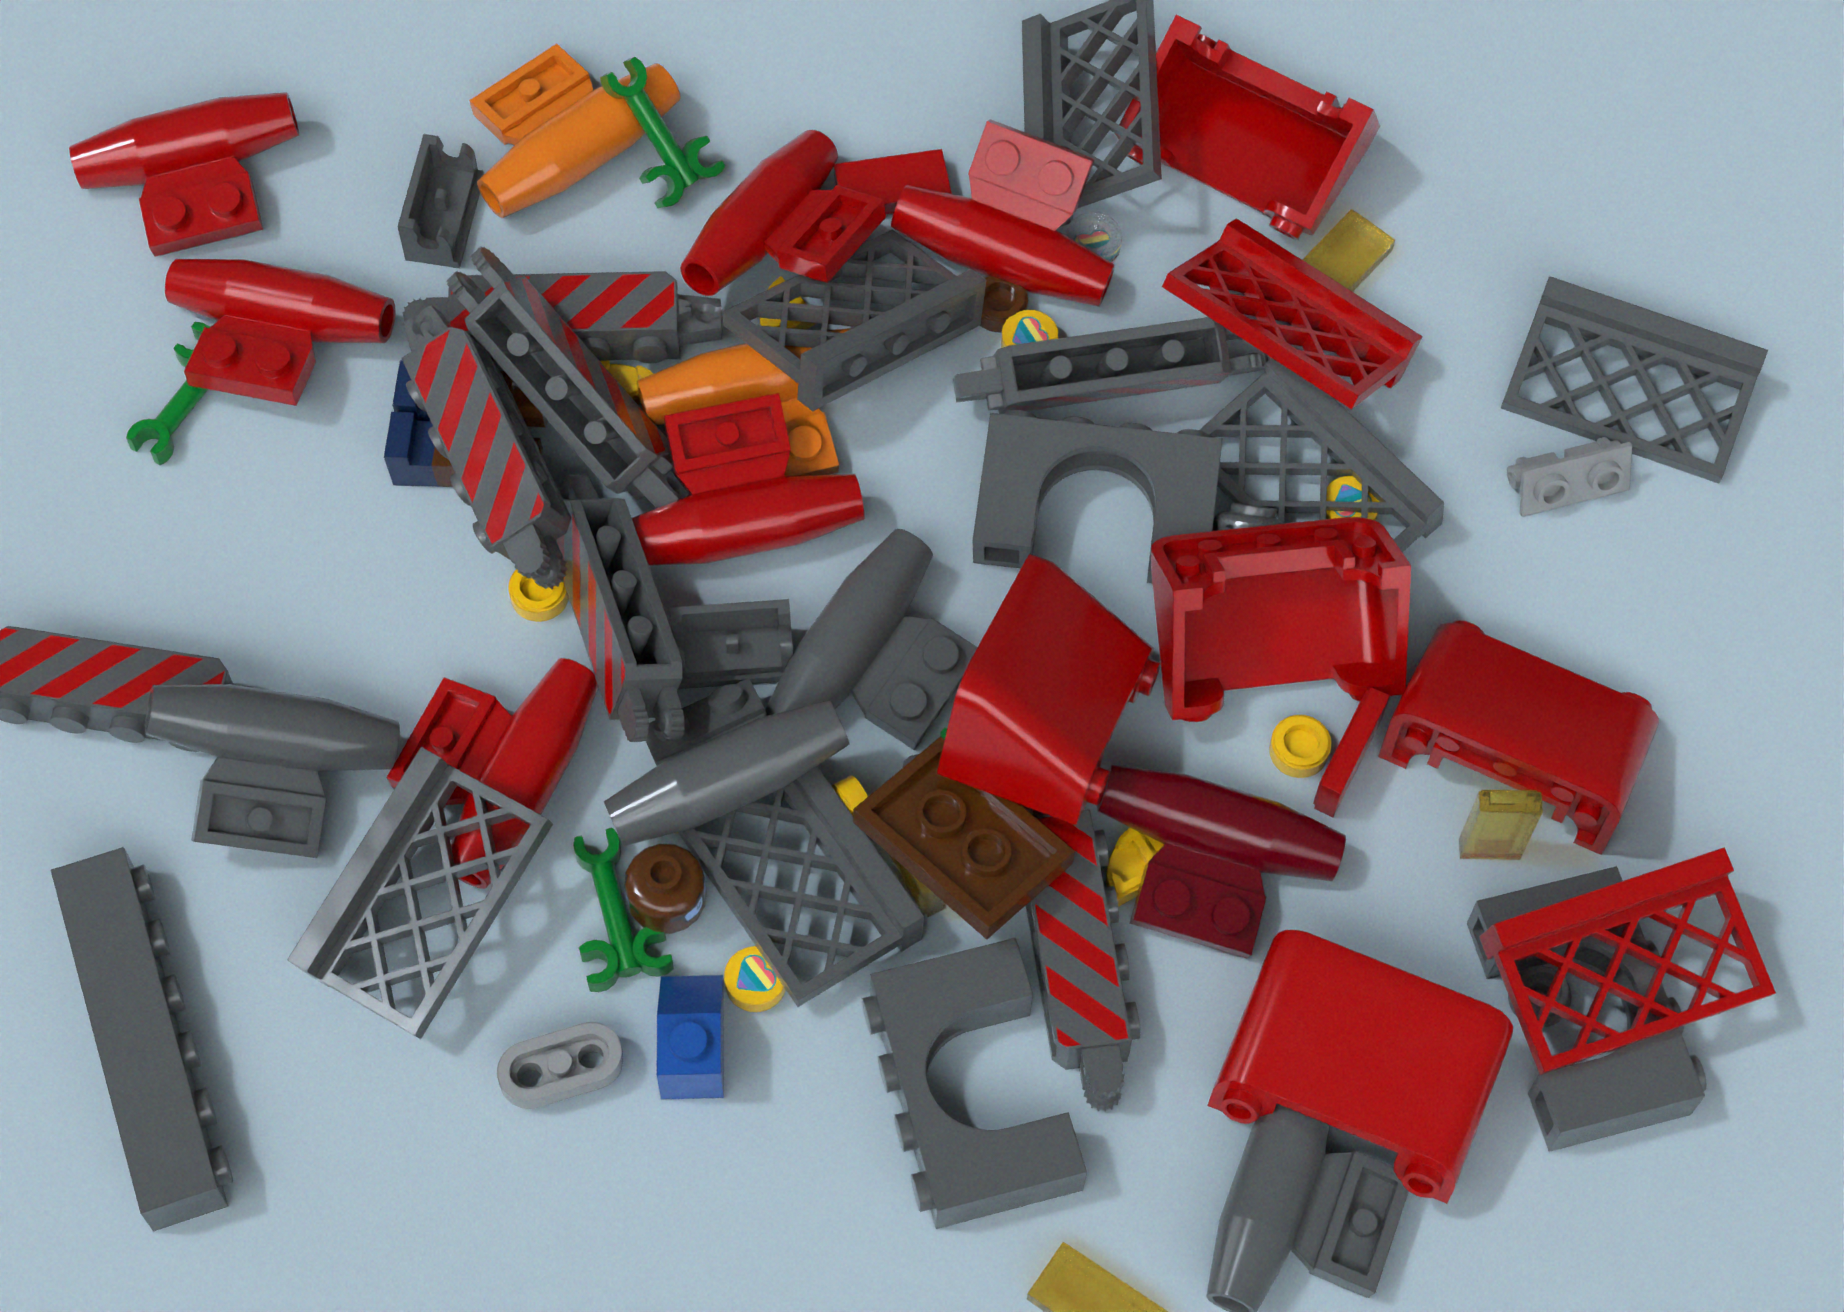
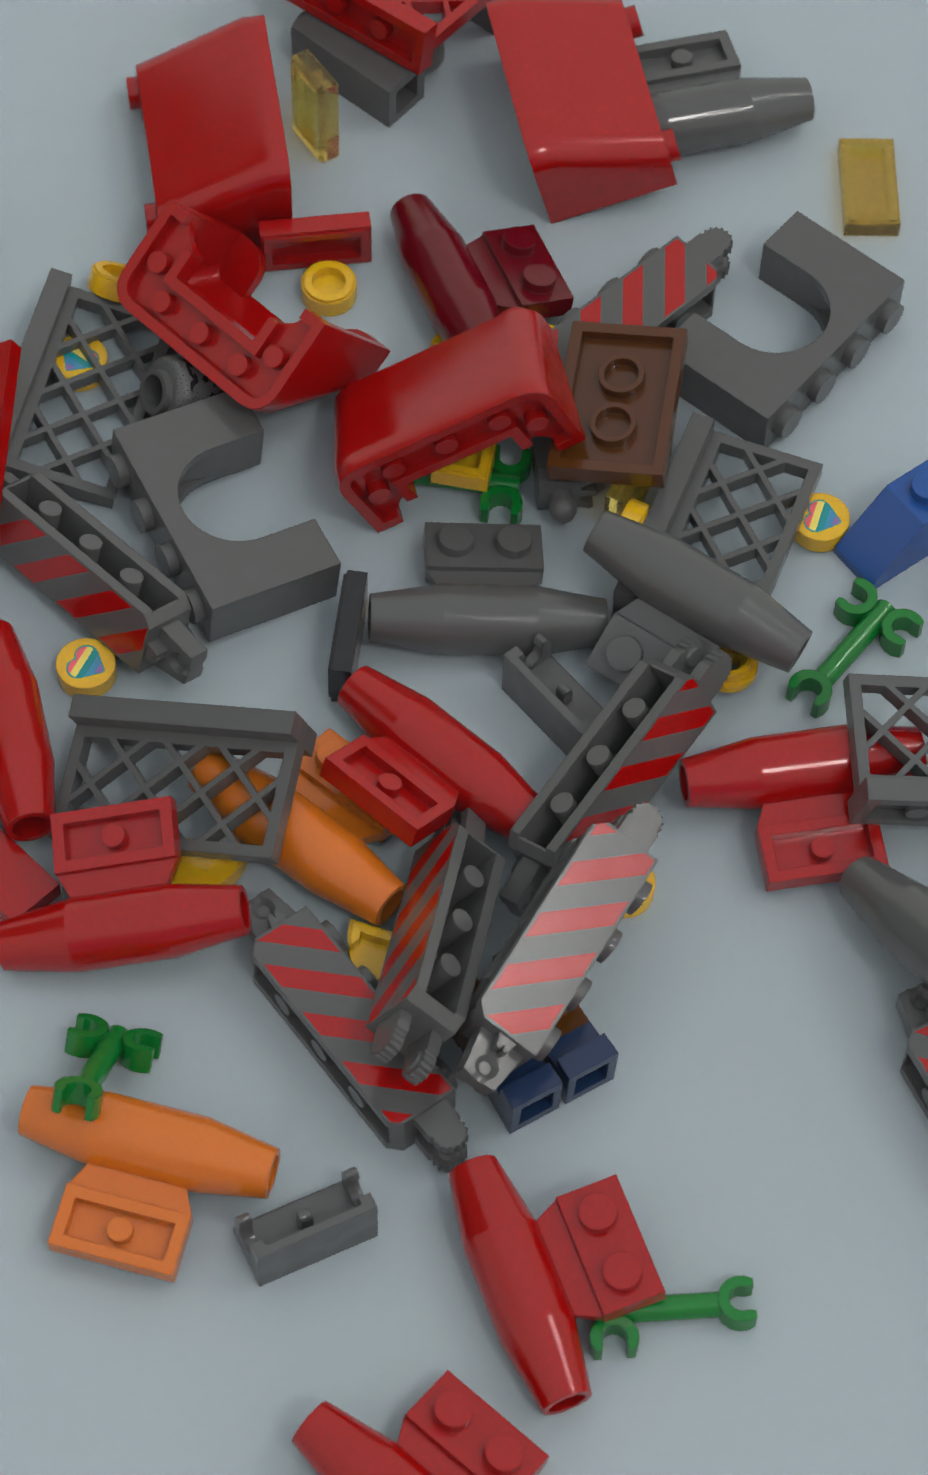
camera: 125 degrees left, 5 degrees down
(665, 888) = (817, 598): reddish brown head -> none
(894, 510) = (348, 631): none -> black tile
(1001, 302) = (56, 707): reddish brown tile -> none
(1426, 568) = (104, 279): none -> yellow tile

